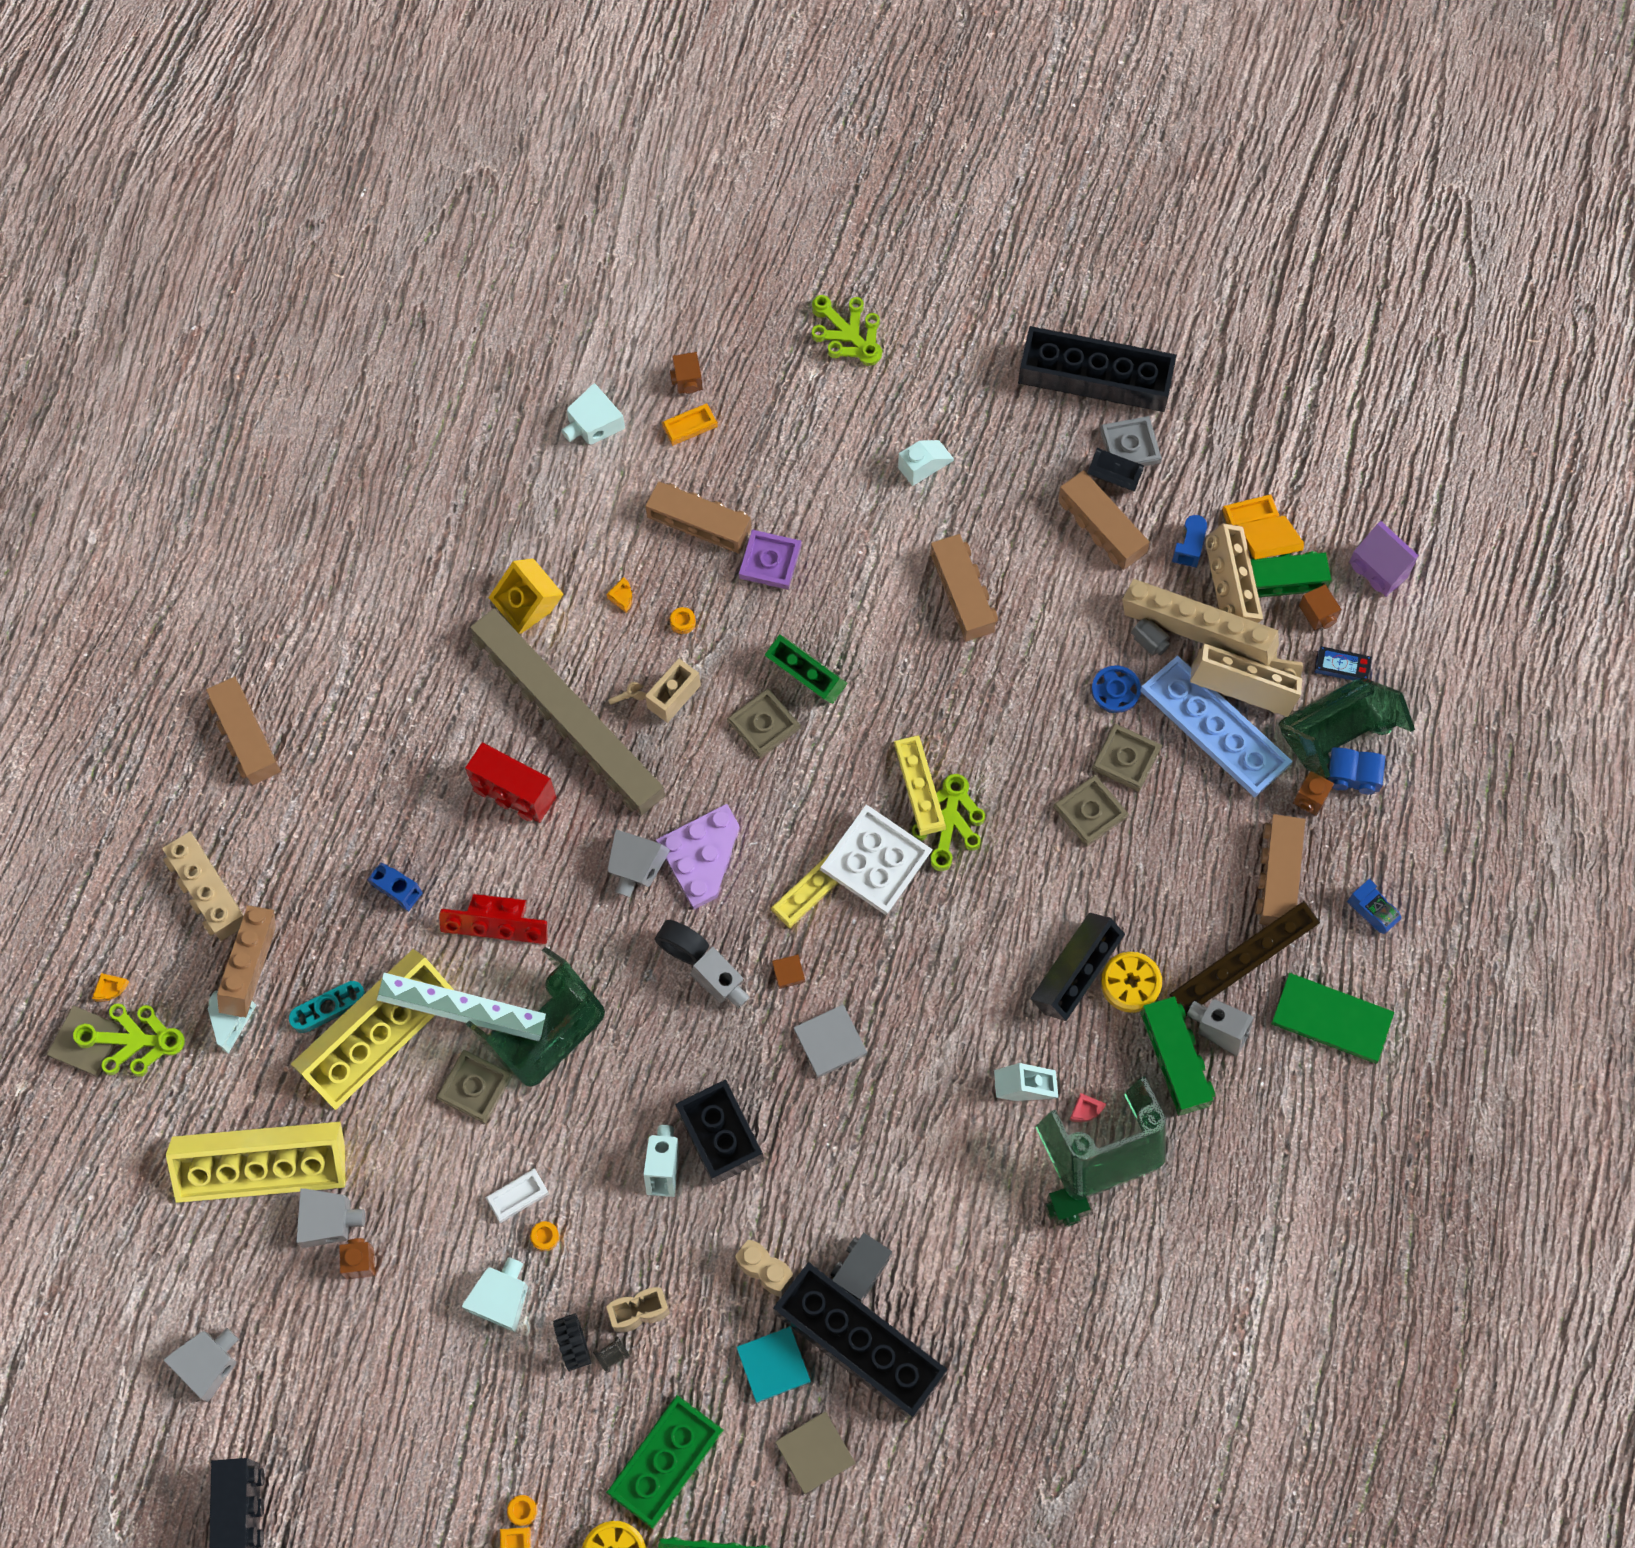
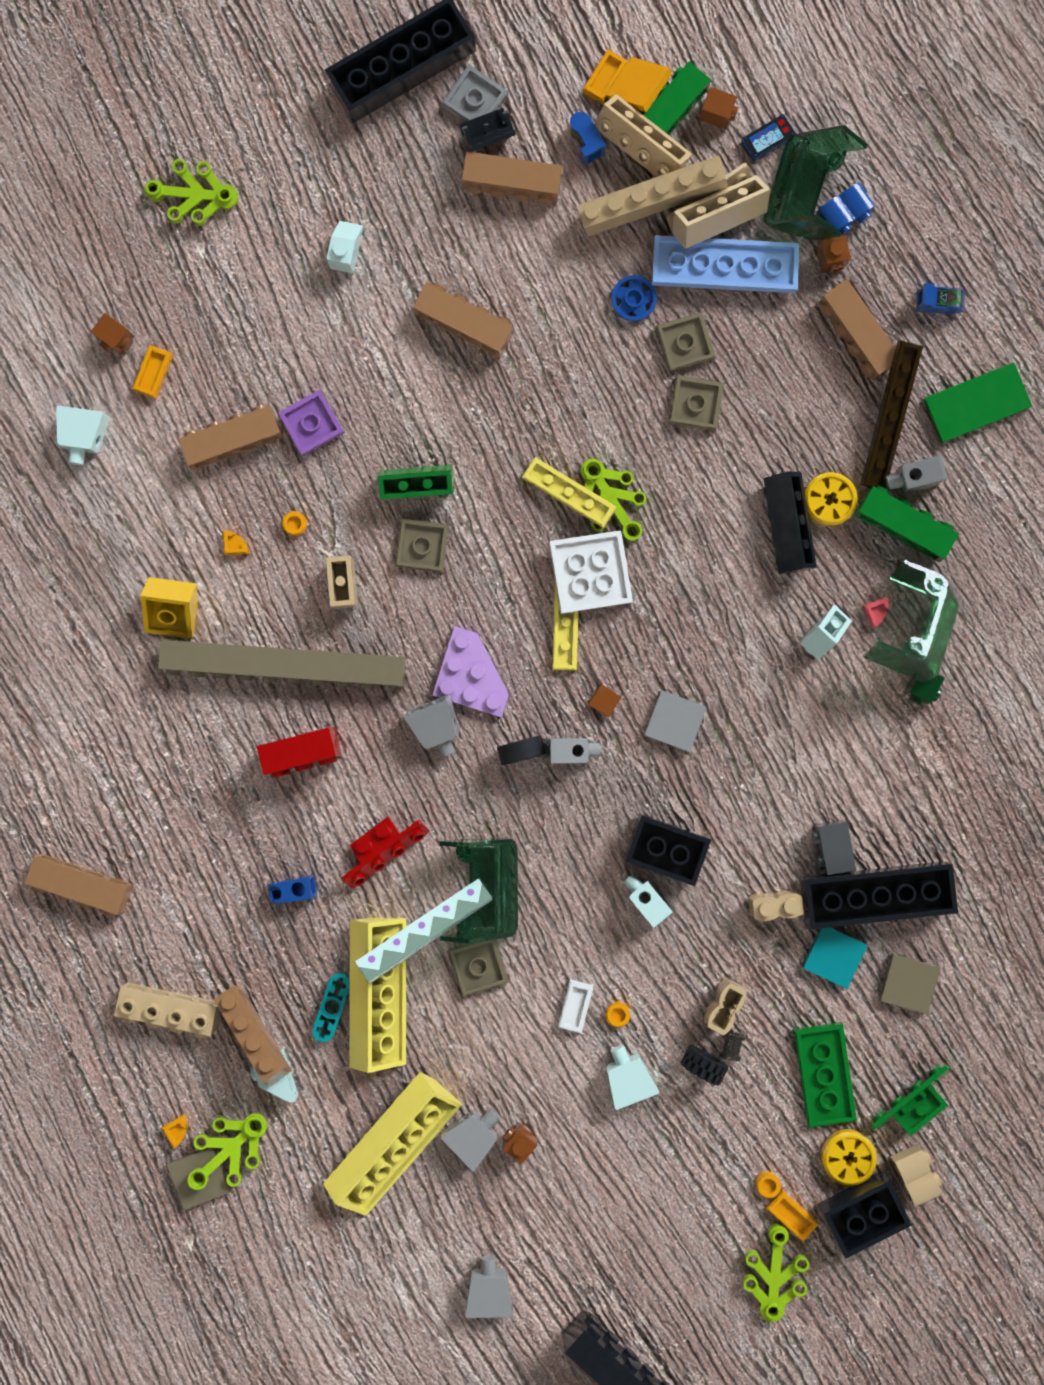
camera: 45 degrees left, 20 degrees up
(632, 691) = (312, 609): tan hand -> none
(1151, 637) = (624, 237): dark grey brick -> none
(1383, 559) = (732, 29): medium lavender slope -> none

